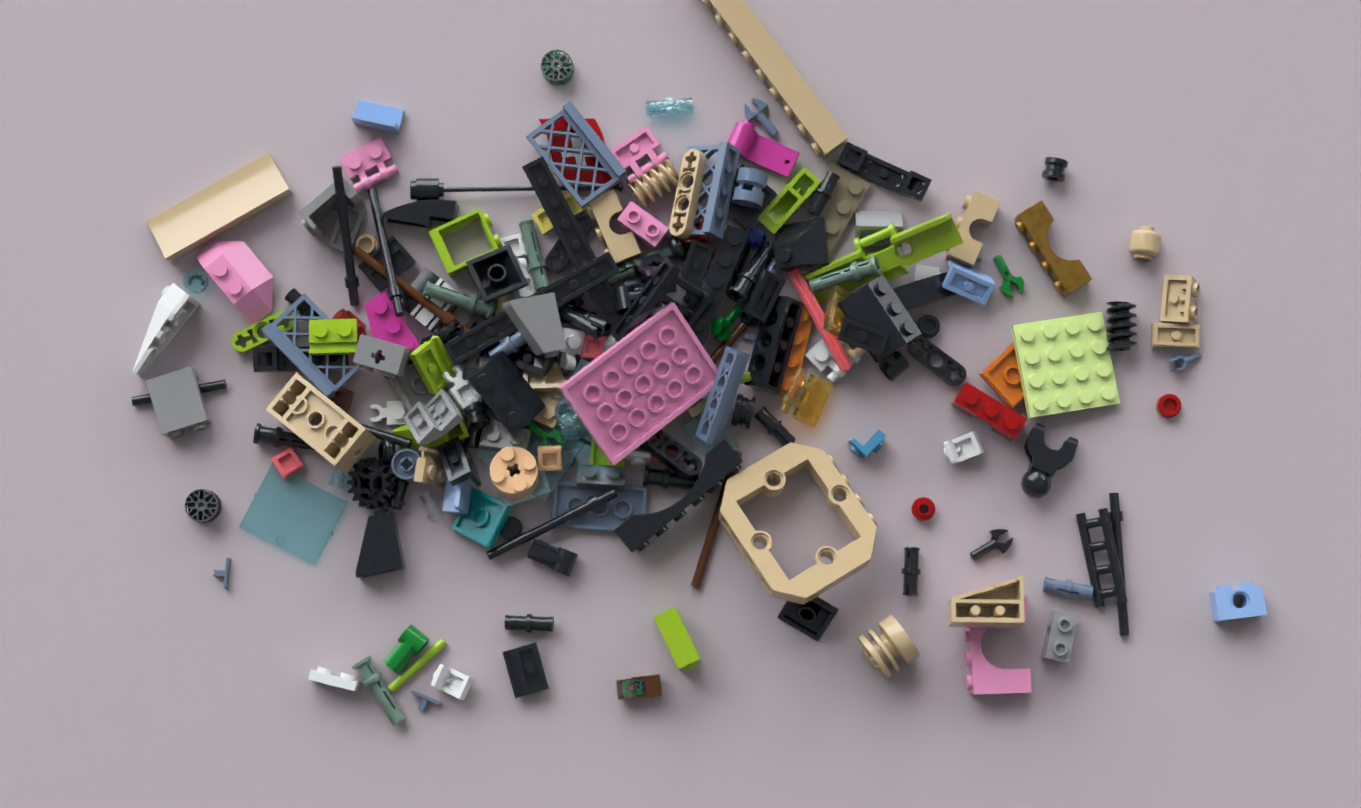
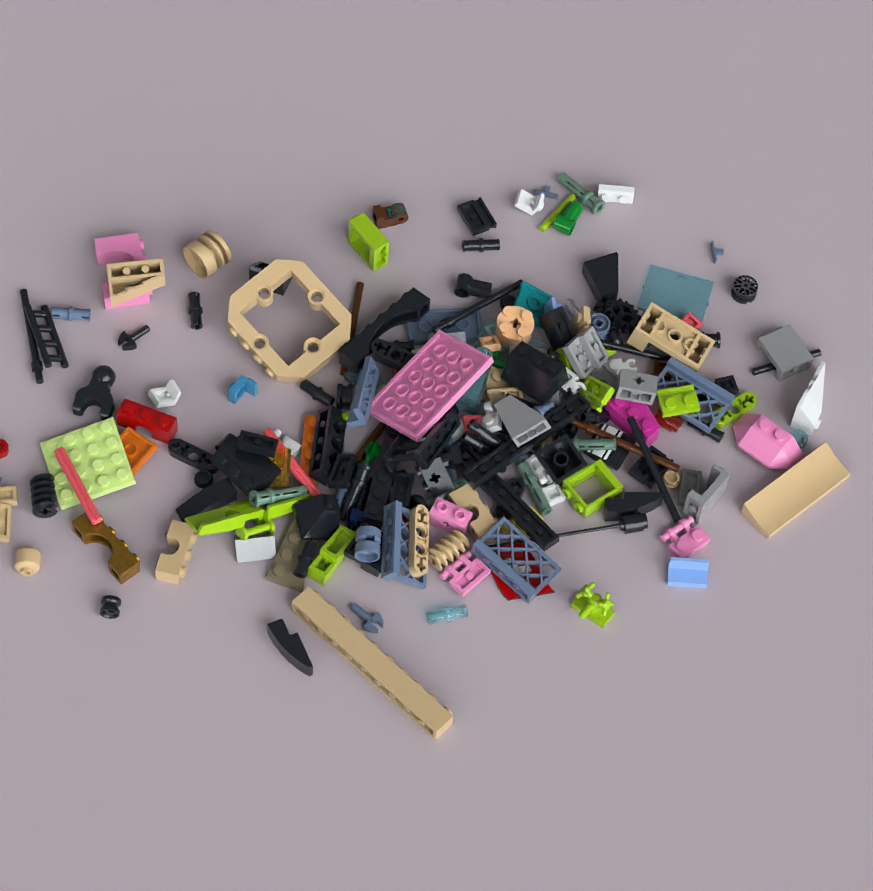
camera: 165 degrees right, 25 degrees down
(351, 279) = (676, 451): black bar -> none
(499, 87) = (593, 606): none -> lime piece
(557, 67) = (548, 632): clear green wheel -> none
(762, 150) = (364, 592): dark pink door -> none
(812, 399) = (291, 411): clear yellow plate -> none
(855, 89) = (290, 646): none -> black slope
(883, 173) = (255, 587): black slope -> none
(923, 516) = (191, 357): red plate -> none
(968, 282) = (172, 508): light blue panel -> none
(1007, 277) = (141, 523): green bar -> none
(1059, 636) = (75, 280): light grey brick -> none
(1082, 324) = (77, 485): none -> coral axle

